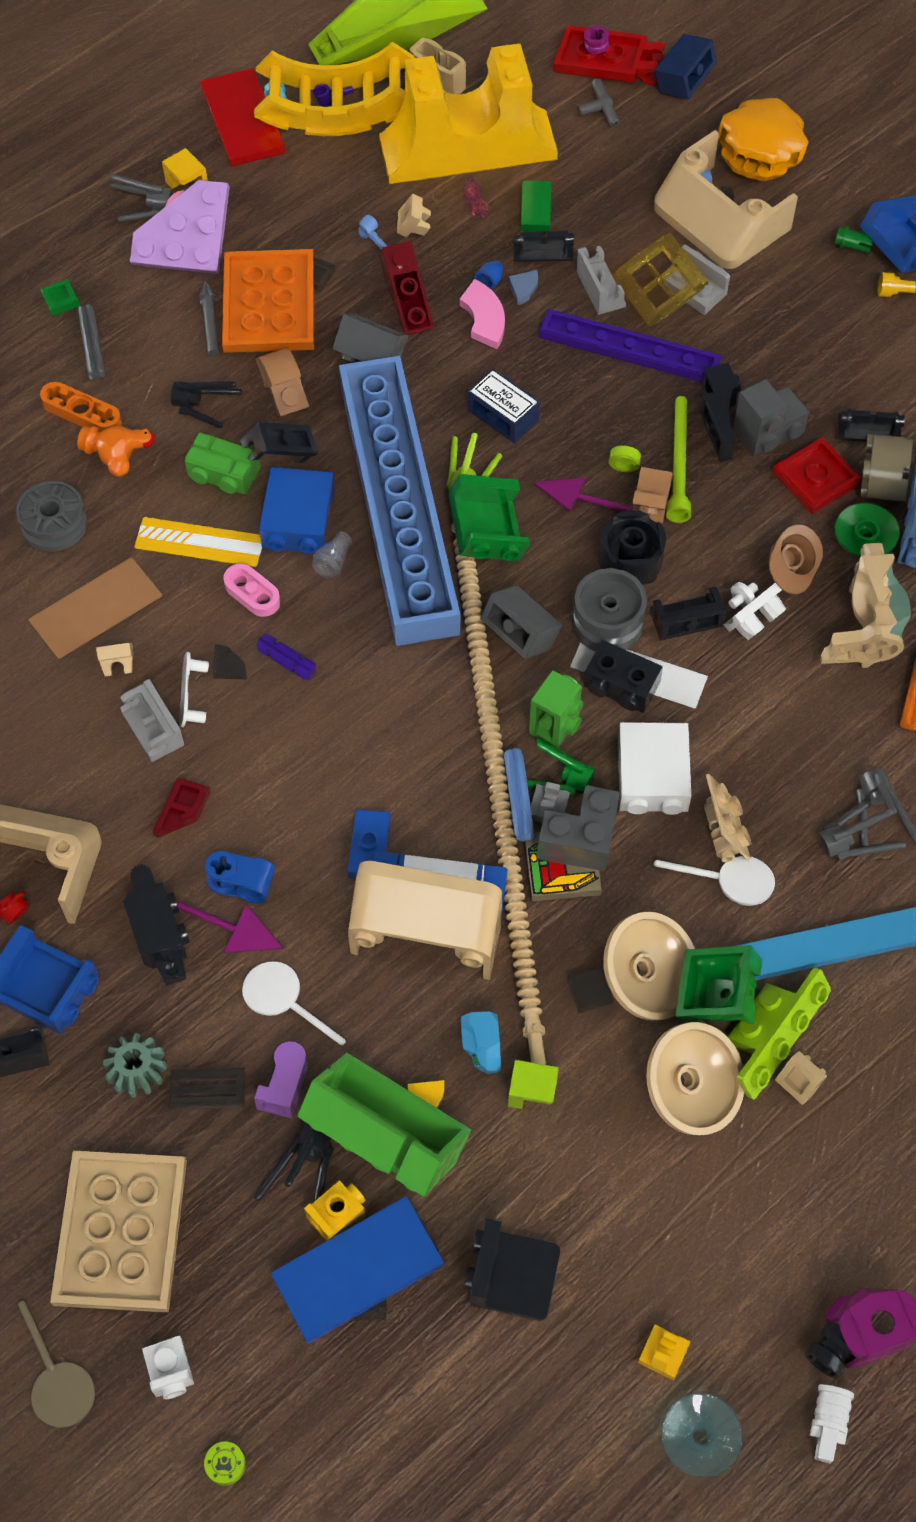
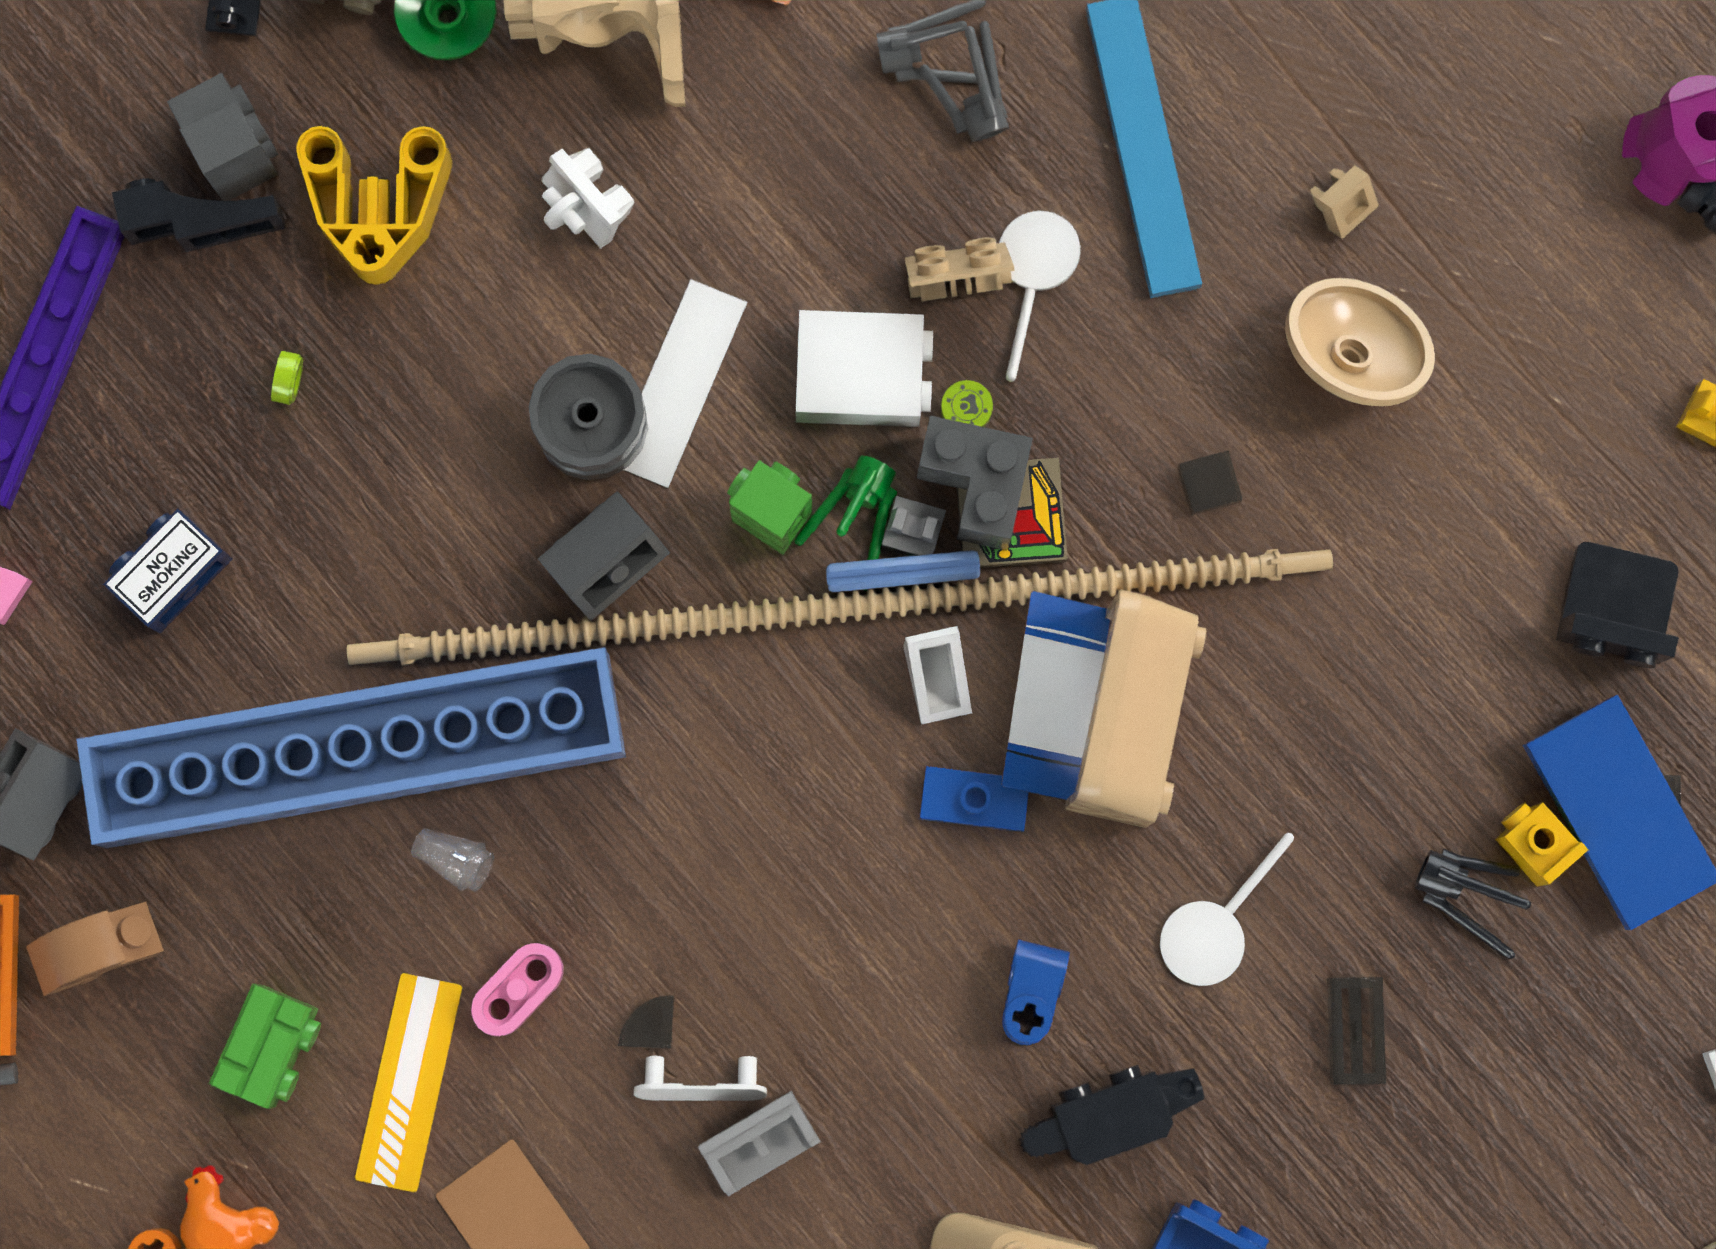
camera: 95 degrees left, 20 degrees up
(115, 653) = (633, 1207): tan tile -> none
(119, 1231) = (1567, 1144): tan plate -> none
(138, 1078) = (1331, 1155): sand green gear -> none
(181, 807) = (903, 1087): dark red tile -> none
(188, 395) = (109, 1109): black plant -> none
(247, 934) = (1116, 980): magenta piece -> none
(280, 440) = (244, 943): black hinge -> none
(286, 656) = (641, 931): dark purple axle -> none
(286, 1082) = (1352, 914): medium lavender leg -> none
(296, 509) = (367, 916): blue panel -> none
(384, 1123) = (1433, 771): bright green piece -> none
(429, 1091) = (1372, 720): yellow tile -> none
(452, 816) = (938, 674): none -> white slope
(453, 474) = (318, 641): lime plant -> none
(482, 1040) = (1294, 636): dark azure rock -> none
(486, 518) = (405, 605): green panel -> none
(532, 1083) = (1361, 567): lime panel -> none
(568, 490) = (336, 477): magenta piece -> none
(622, 677) = (703, 405): black brick -> none
(633, 545) = (448, 359): black brick -> none
(633, 836) = (967, 403): none -> lime tile
(652, 493) = (363, 337): medium nougat brick -> none
(659, 951) = (1191, 391): tan dish -> none
(678, 506) = (378, 298): lime piece -> none
(689, 615) = (584, 298): black hinge -> none
(719, 984) = (1232, 299): green brick -> none
(726, 498) = (417, 200): none -> yellow connector
(776, 1027) = (1268, 235): lime bracket -> none
(795, 558) = (503, 127): medium nougat piece -> none
(817, 475) = (325, 74): red tile -> none

